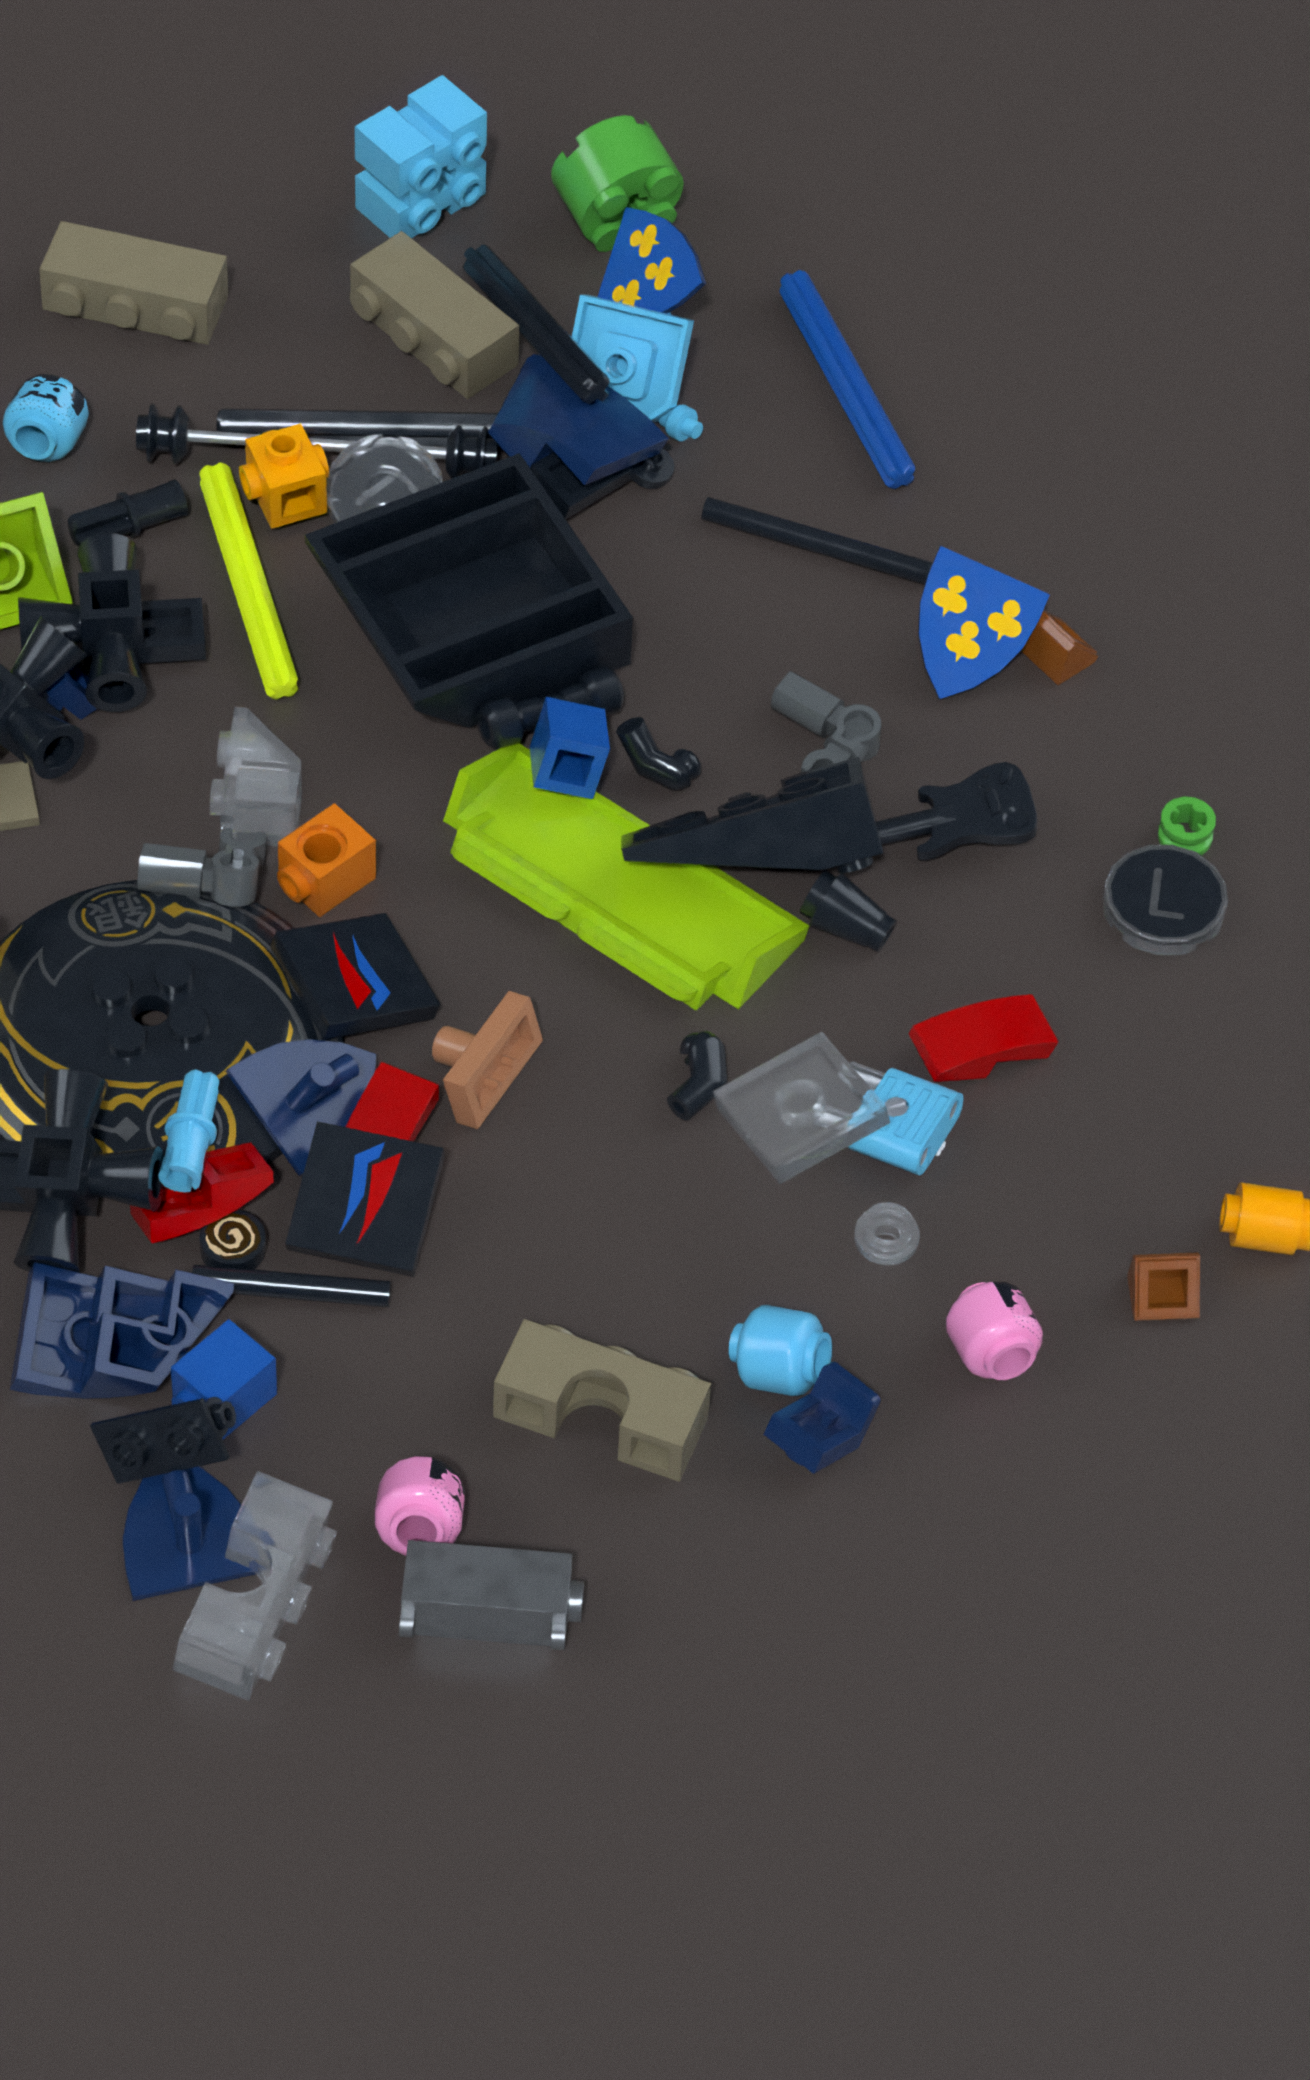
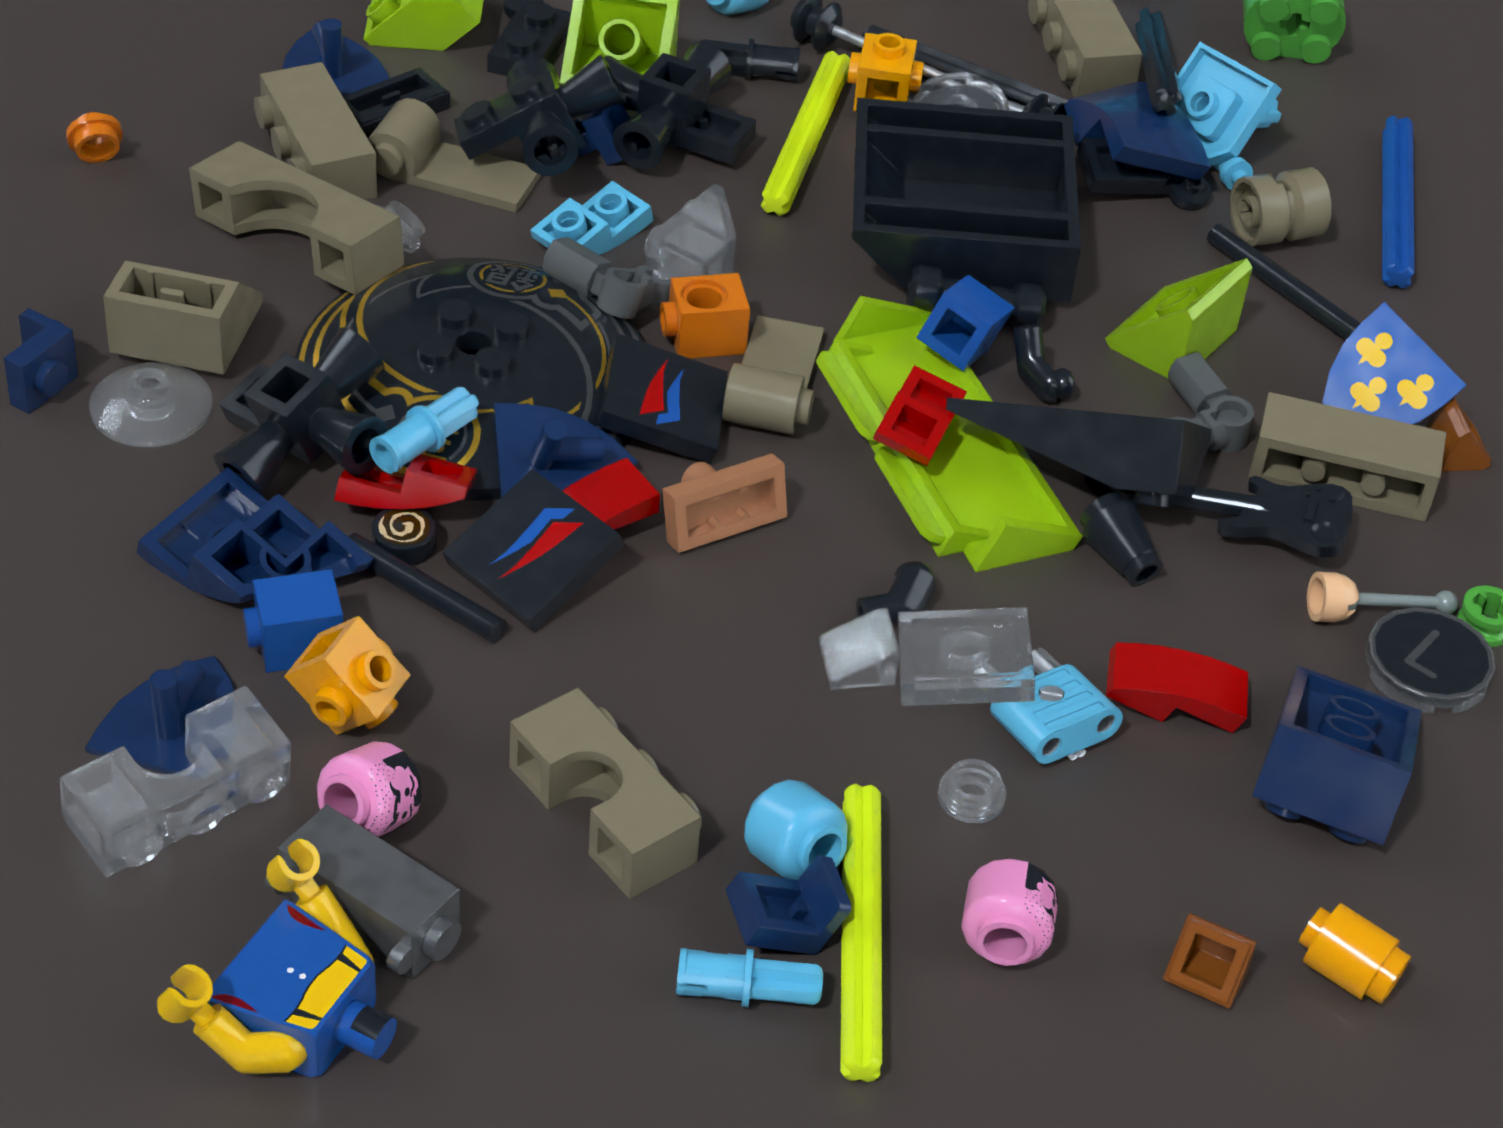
camera: 30 degrees right, 10 degrees down
(132, 803) = (598, 224): none -> medium azure slope
(165, 1438) = (204, 629): black hinge -> none
(318, 1412) = (348, 677): none -> light orange brick
(426, 895) = (774, 376): none -> dark tan door
(498, 1703) = (293, 988): none -> torso
(595, 875) = (918, 416): none -> red slope
(651, 264) = (1286, 58): blue shield -> none
(707, 1147) = (861, 652): none -> clear slope
(743, 635) = (1184, 318): none -> lime slope
(756, 452) = (1286, 207): none -> dark tan wheel
(828, 1500) = (747, 978): none -> medium azure axle
(893, 1417) = (862, 937): none -> neon yellow axle
(981, 719) = (1375, 458): none -> dark tan brick
(1056, 877) = (1335, 598): none -> light nougat hinge
(1153, 1037) = (1339, 757): none -> dark blue slope

